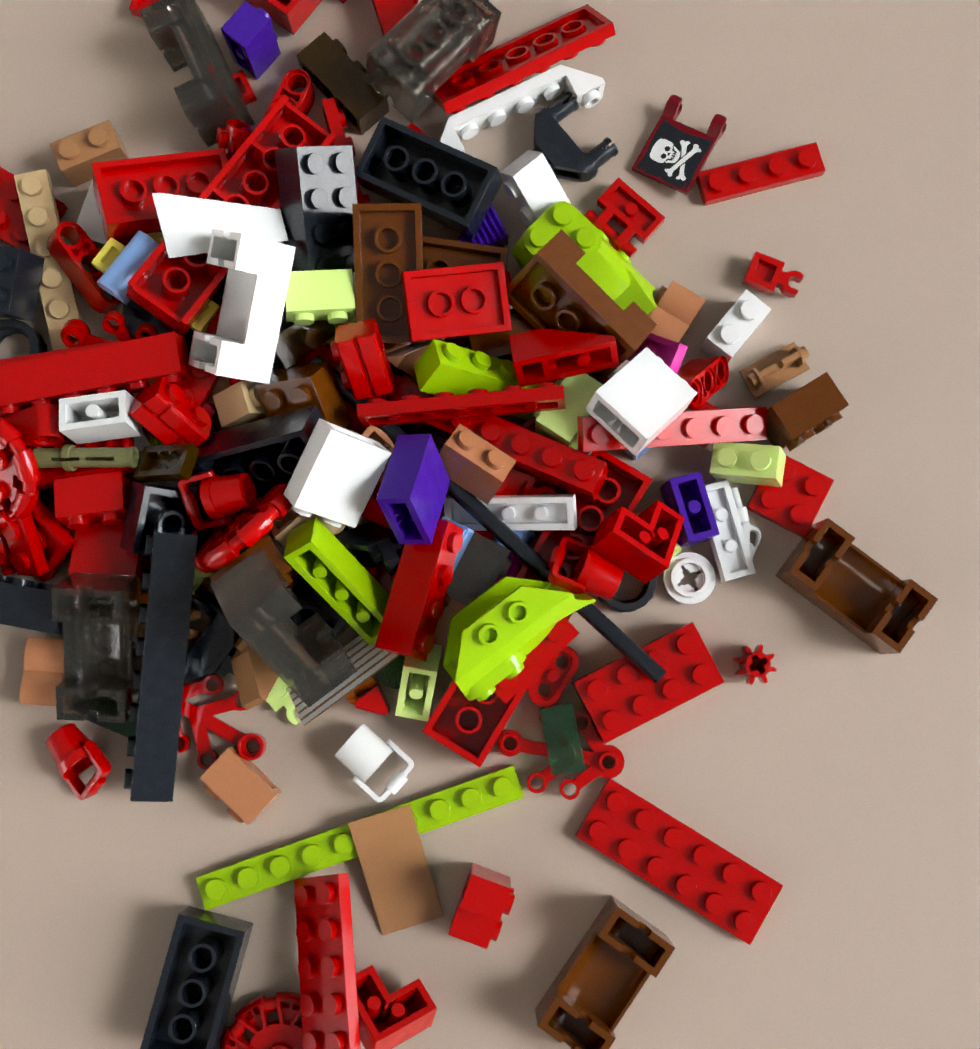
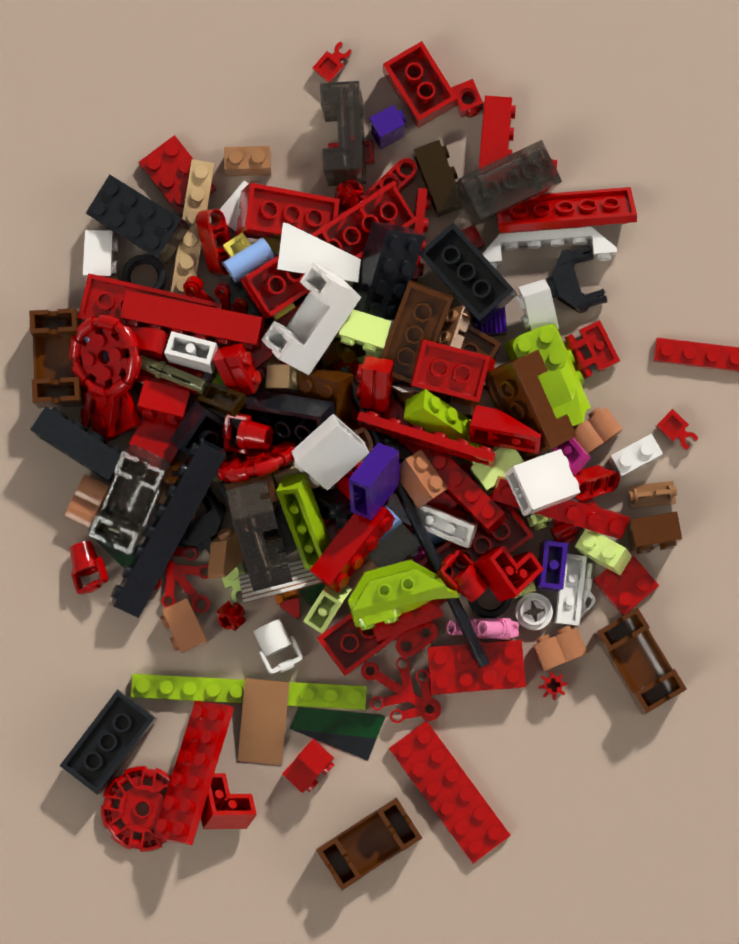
camera: 25 degrees right, 0 degrees up
(297, 746) = (231, 616): none -> red gear
(438, 240) = (456, 320): none -> medium nougat hinge
(503, 835) = (341, 729): none -> dark green sticker
(562, 739) = (405, 681): clear green plate -> none
(641, 624) = (488, 628): none -> bright pink connector
(648, 459) = (538, 522): none -> yellowish green plate
(676, 151) = (648, 317): flag -> none
(685, 459) = (563, 532): none -> red gear
(743, 613) = (560, 648): none -> nougat brick

